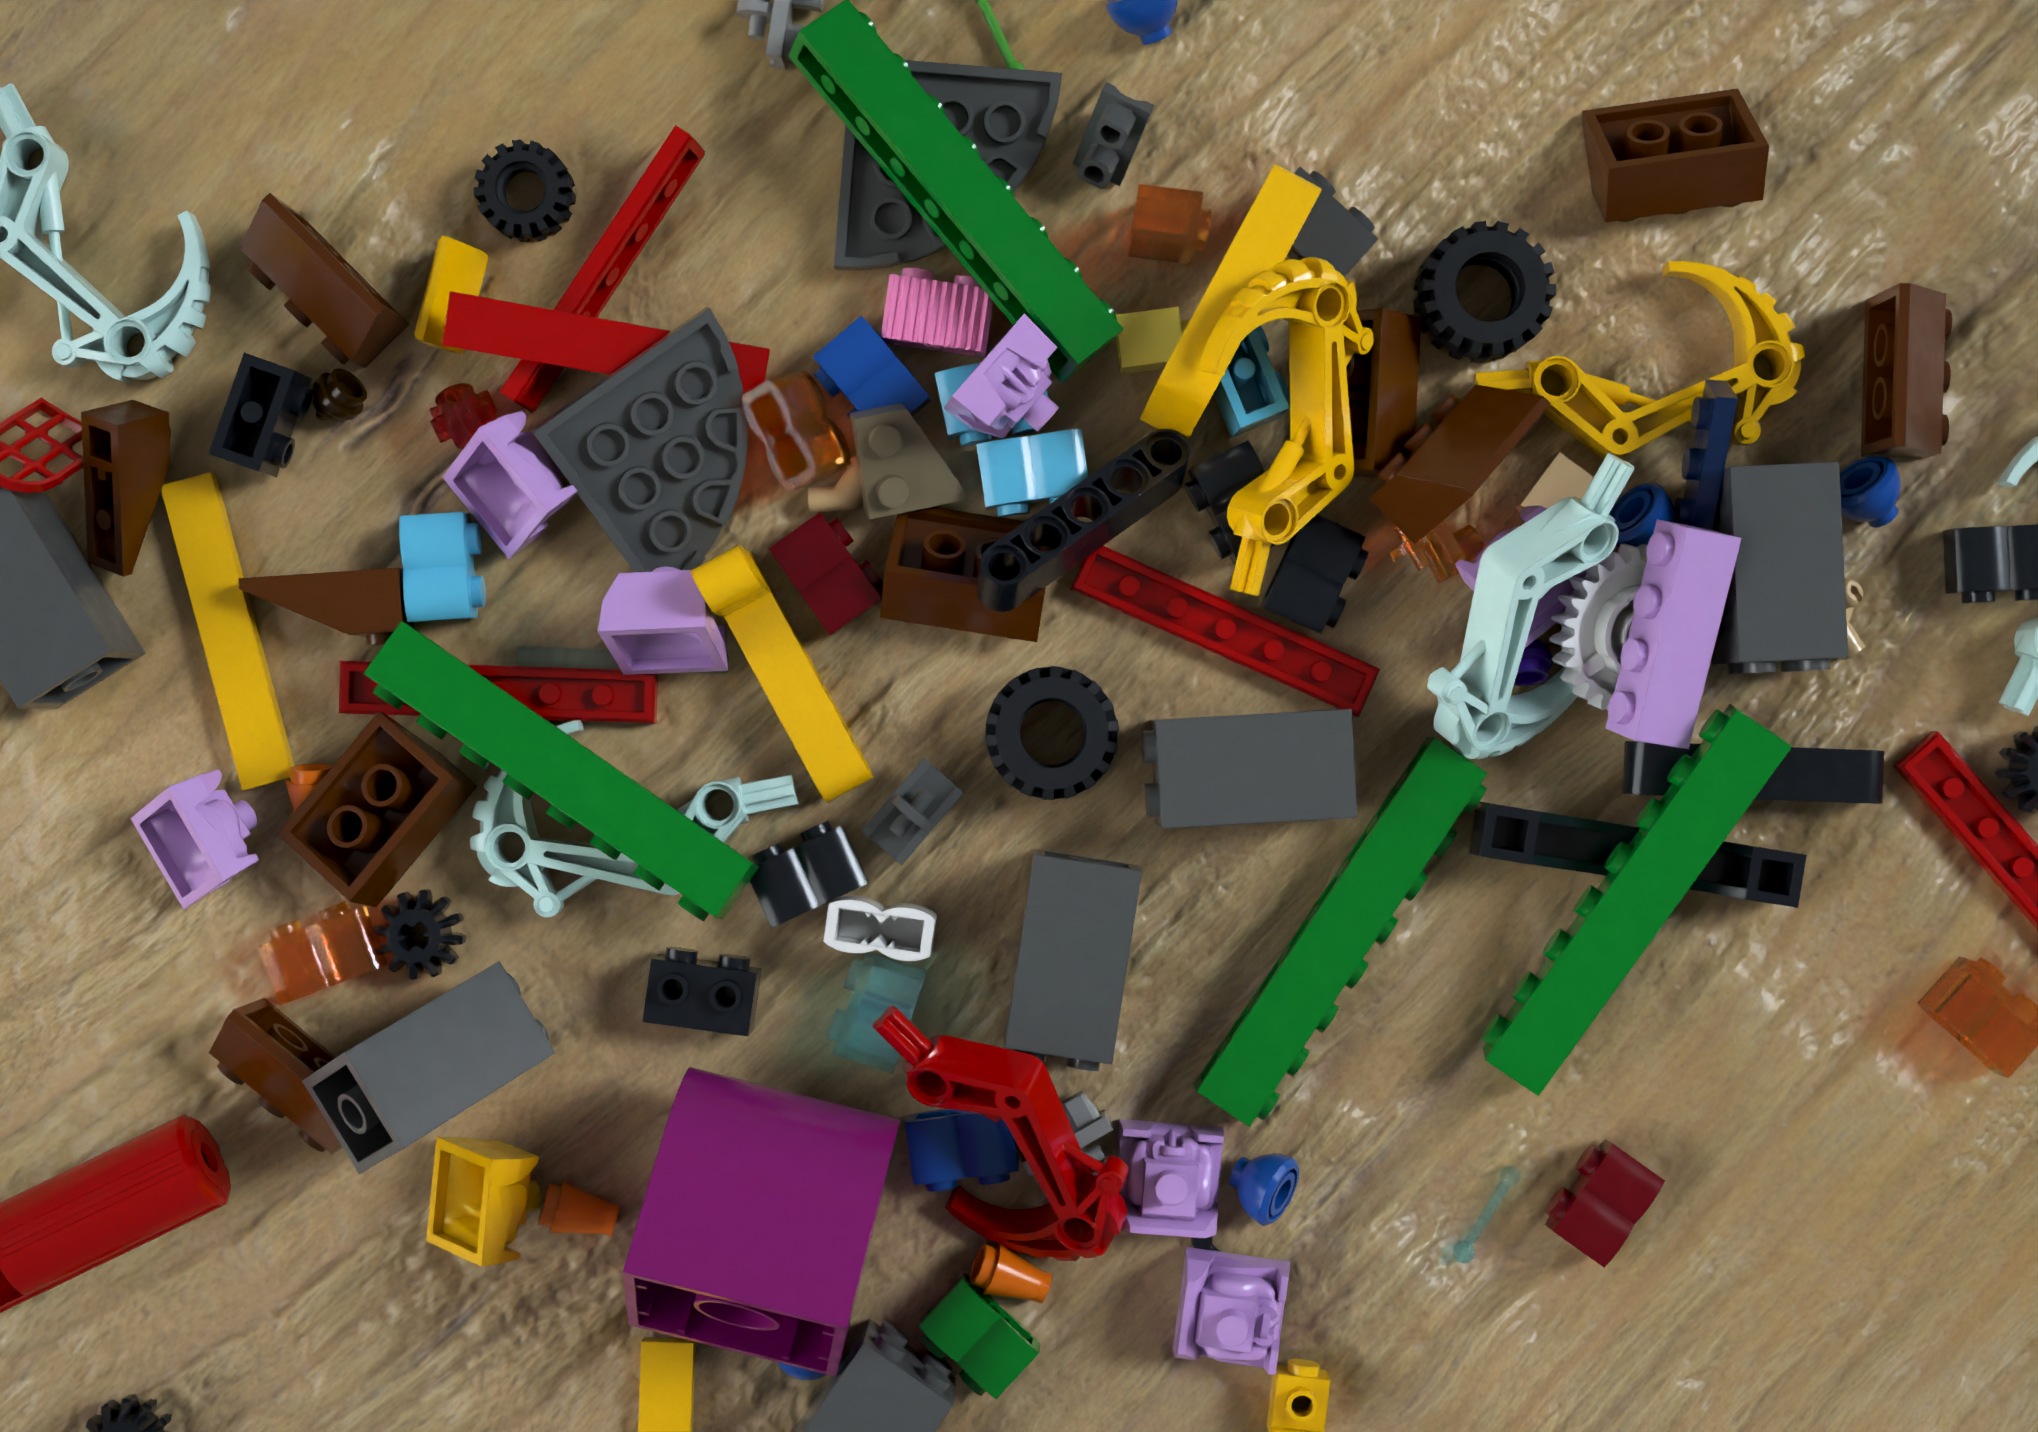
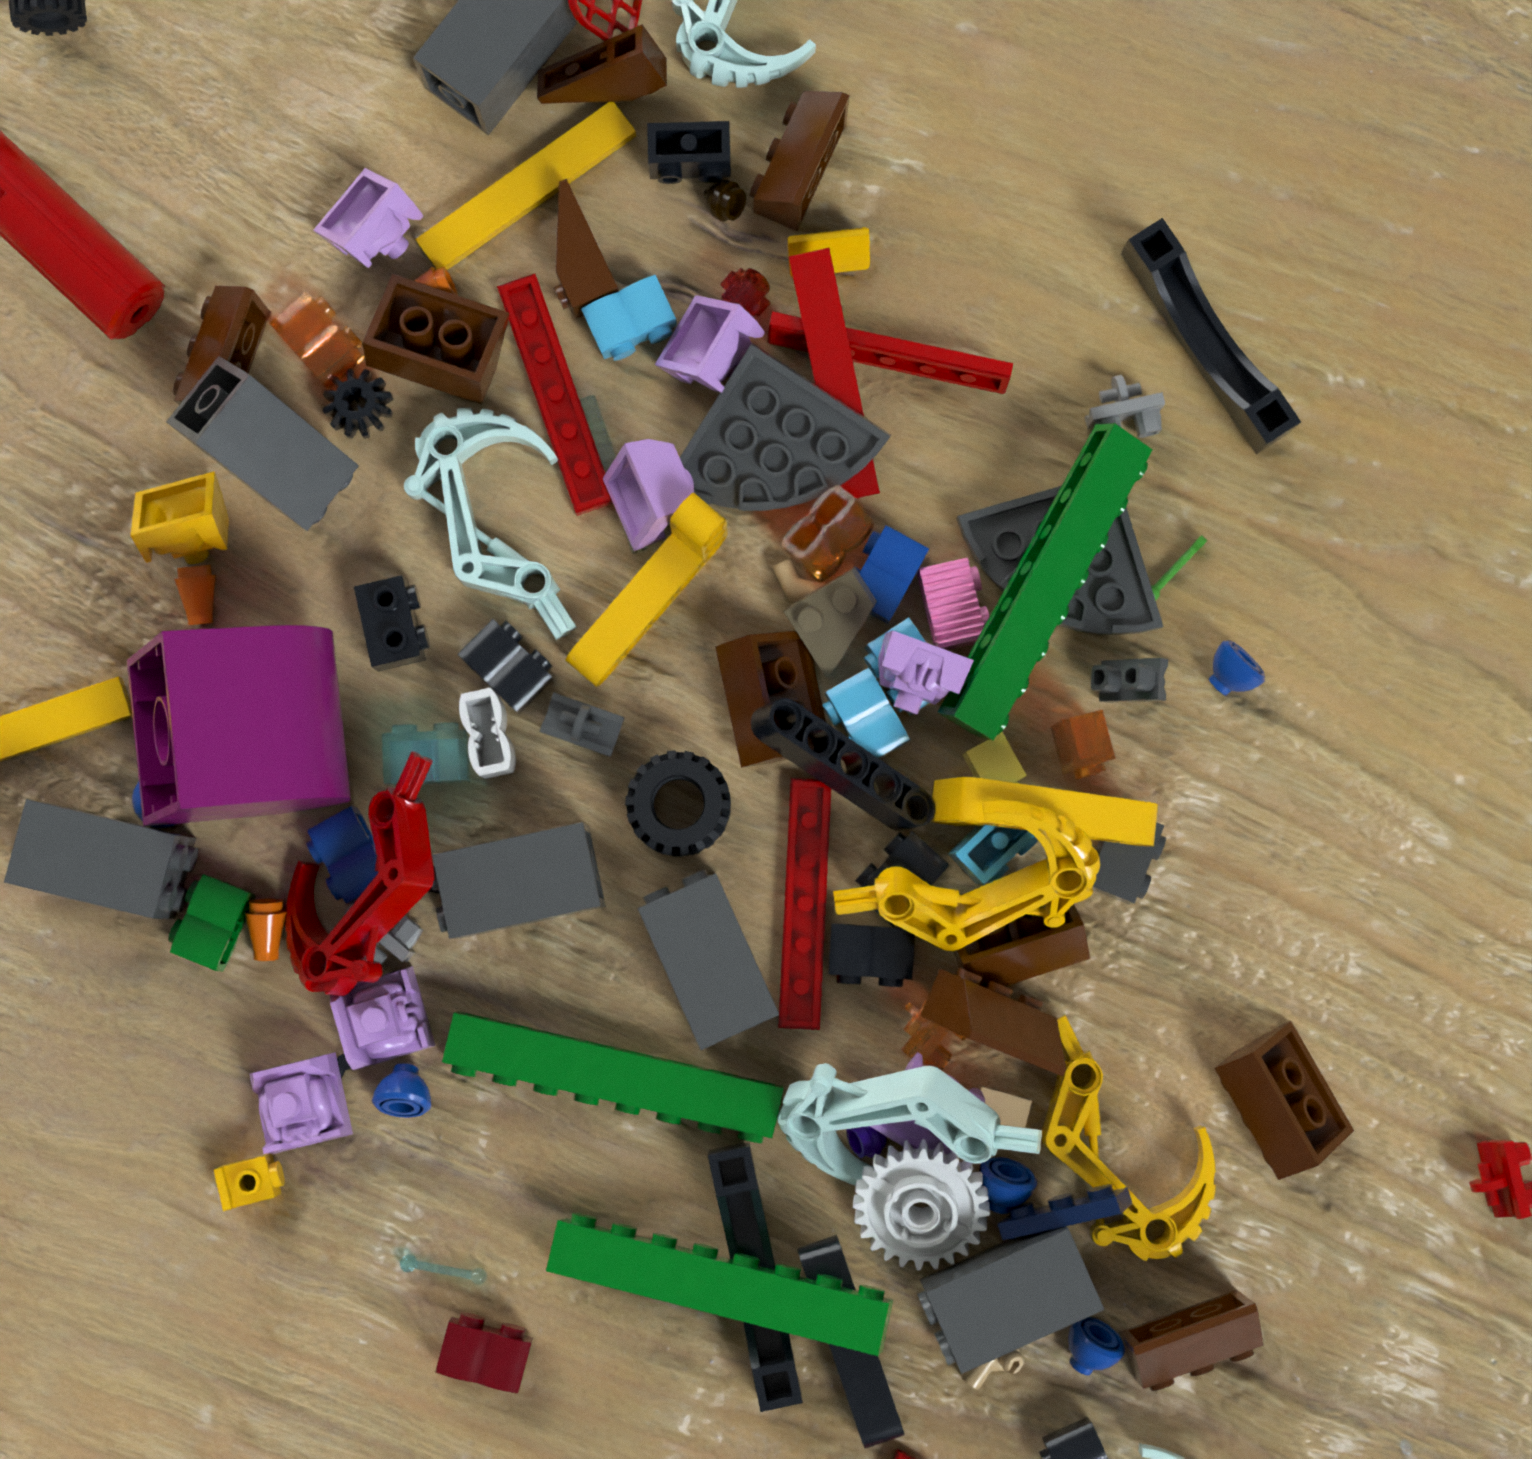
camera: 65 degrees right, 5 degrees down
(498, 173) = (928, 252): black tyre -> none
(561, 771) = (513, 459): green brick -> none
(827, 573) = (733, 596): dark red brick -> none
(1517, 263) = (1162, 1005): black tyre -> none
(1672, 634) = (927, 1234): lavender brick -> none

